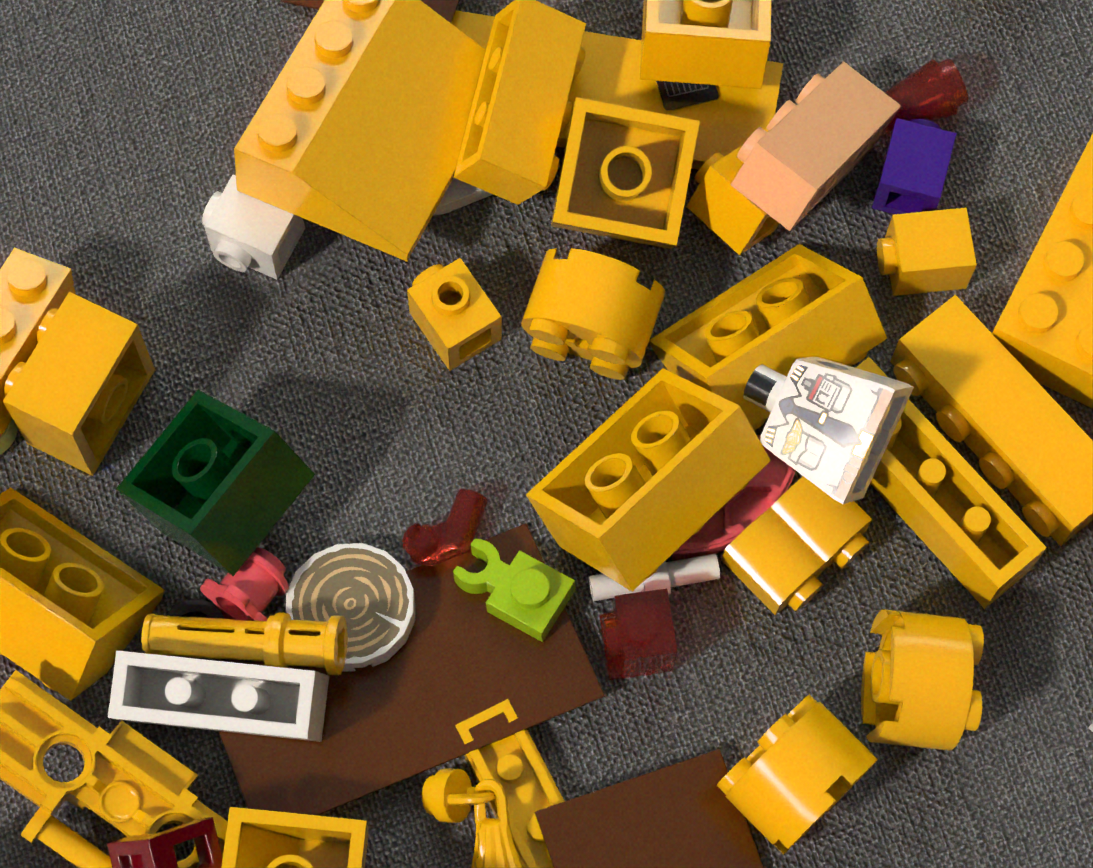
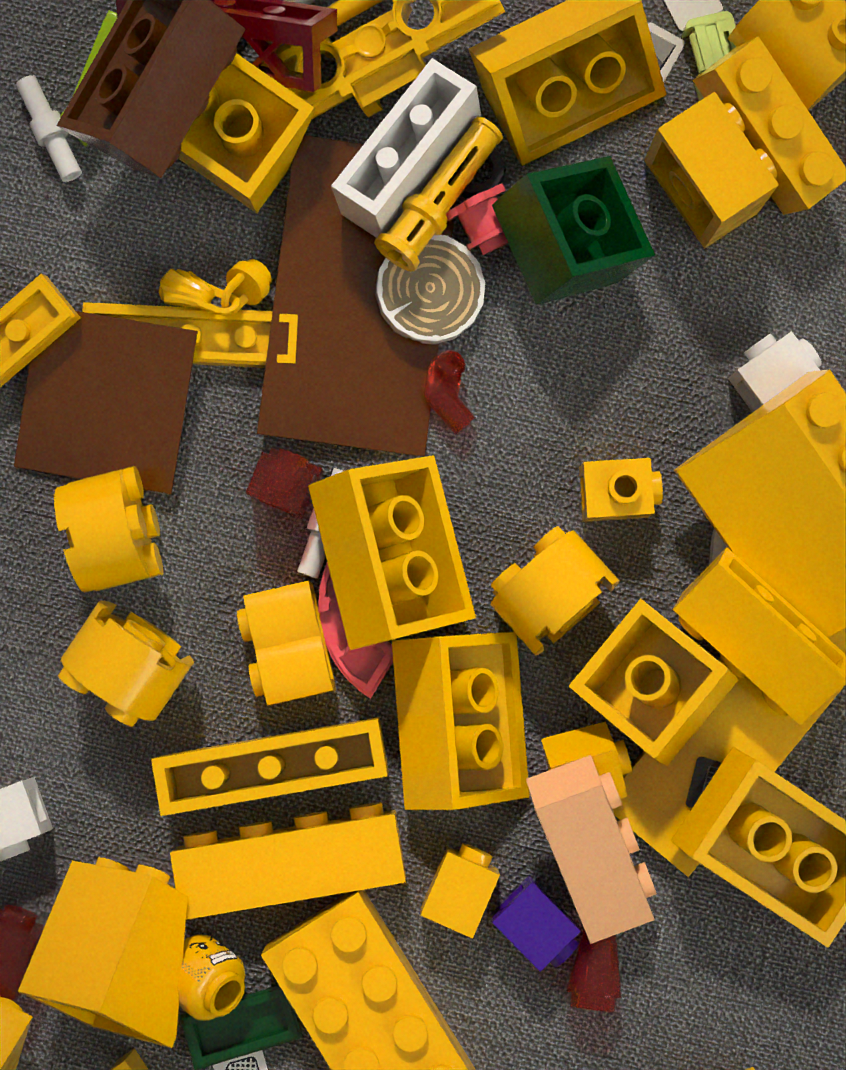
camera: 125 degrees right, 15 degrees up
(521, 593) = (368, 419): lime plate -> none
(828, 421) = (348, 706): torso -> none

